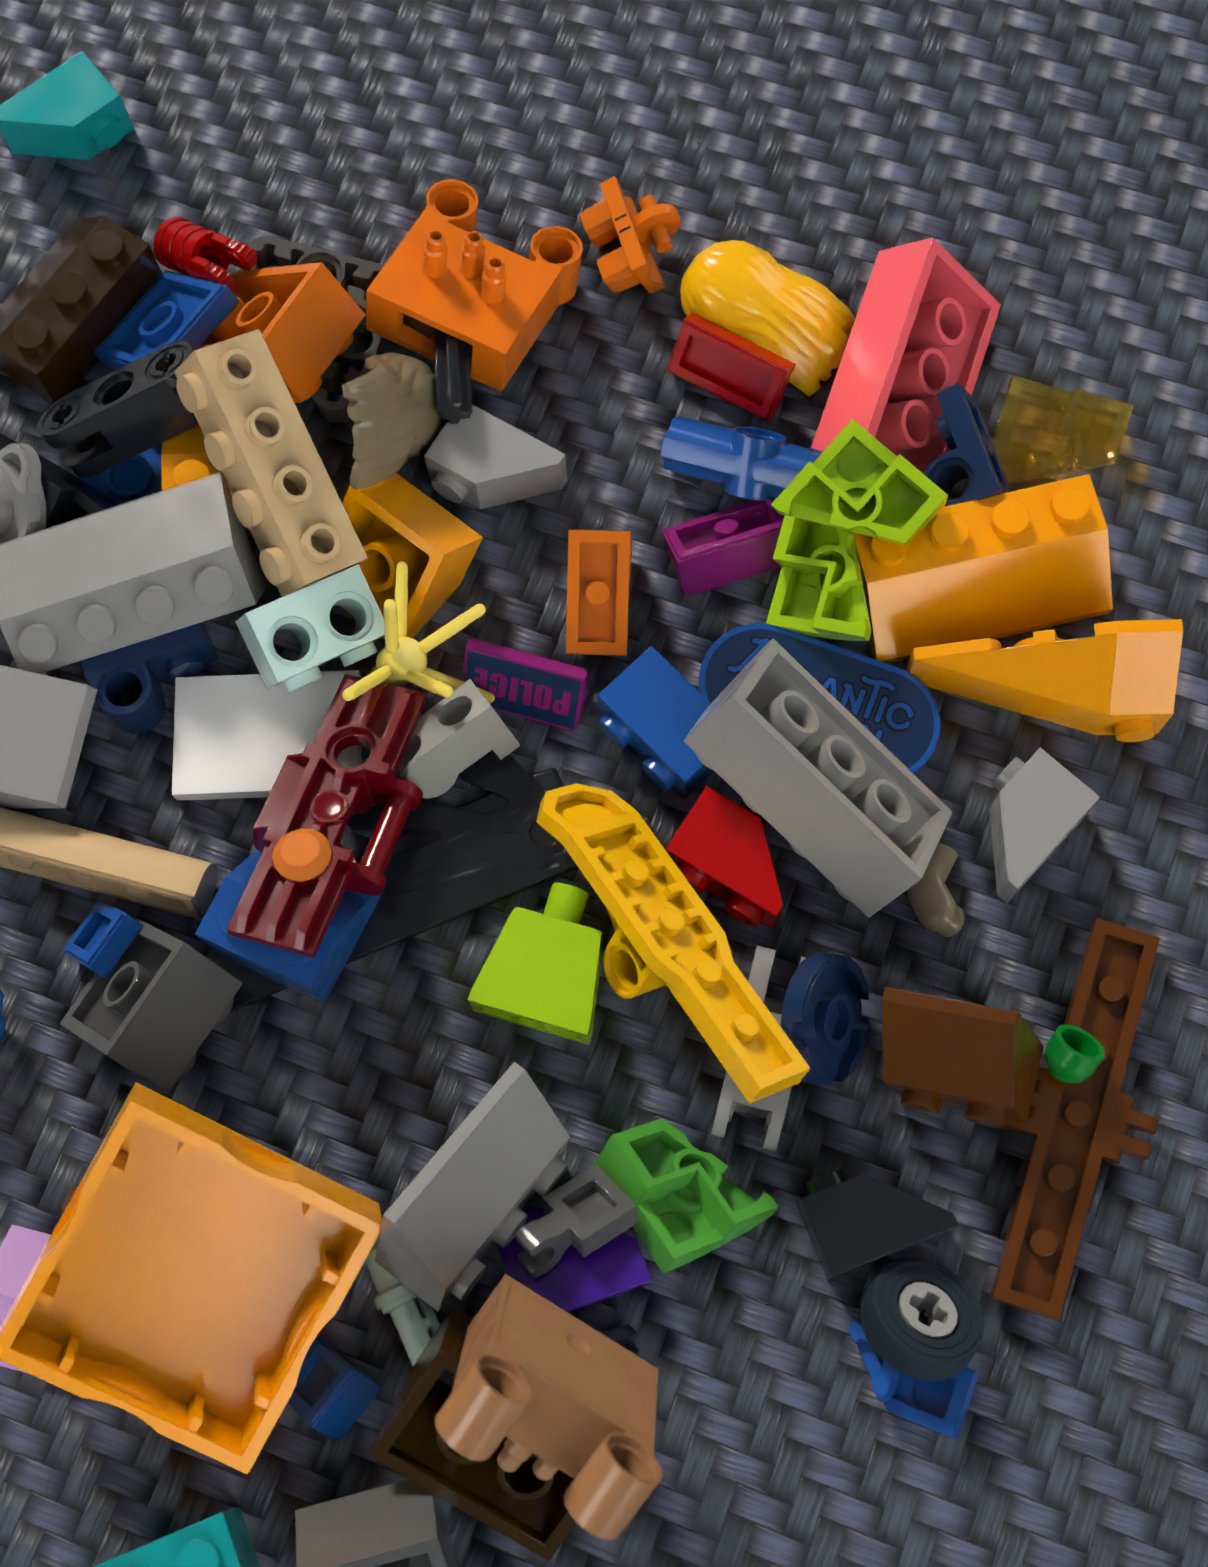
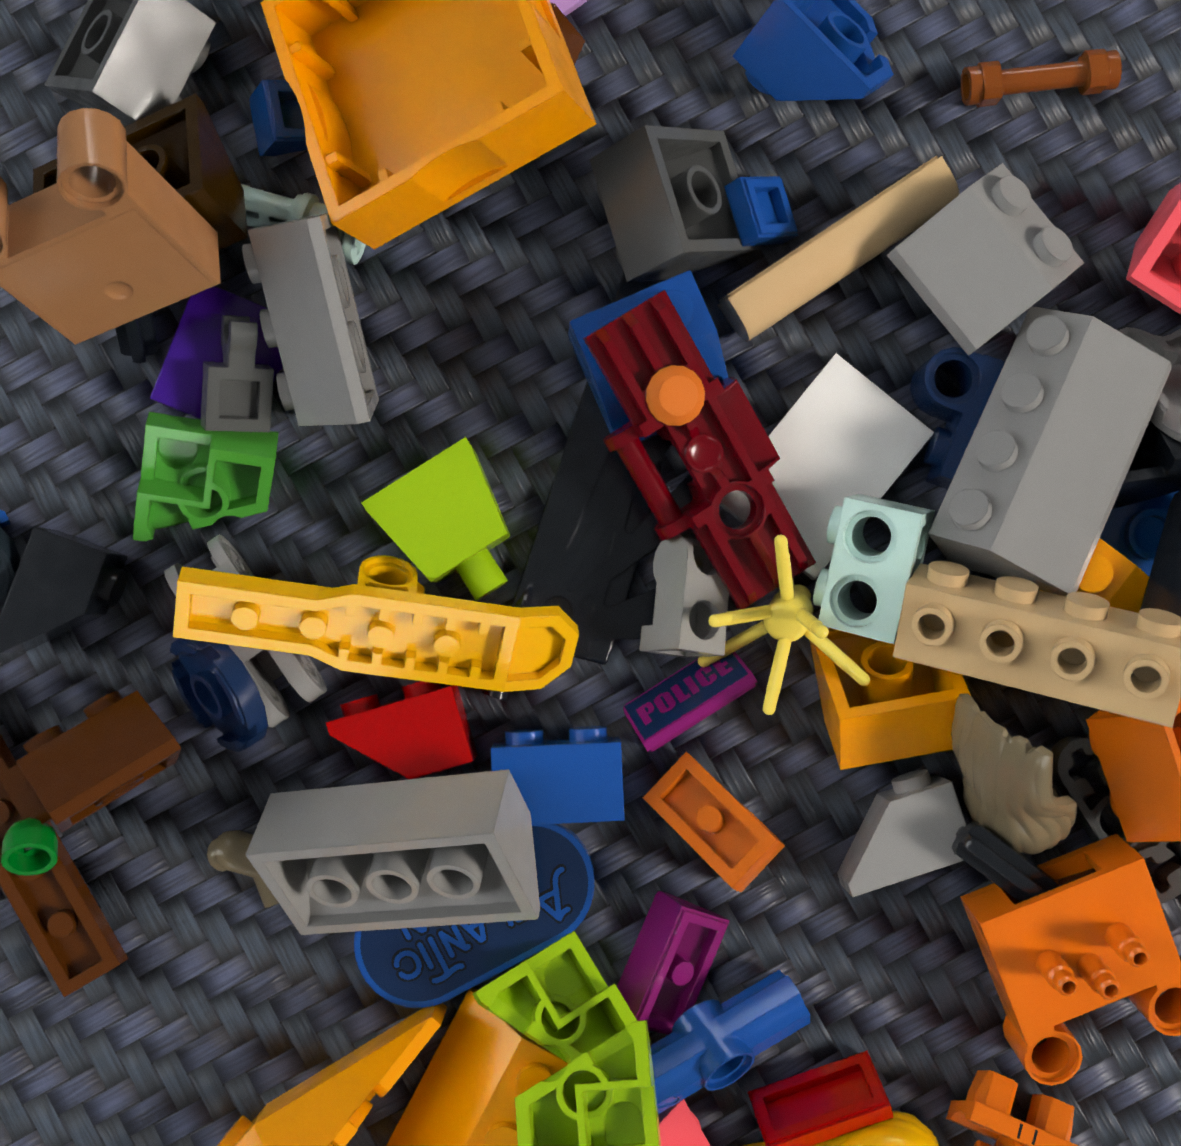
camera: 125 degrees right, 15 degrees up
(1032, 817) = (235, 988): light grey slope -> none

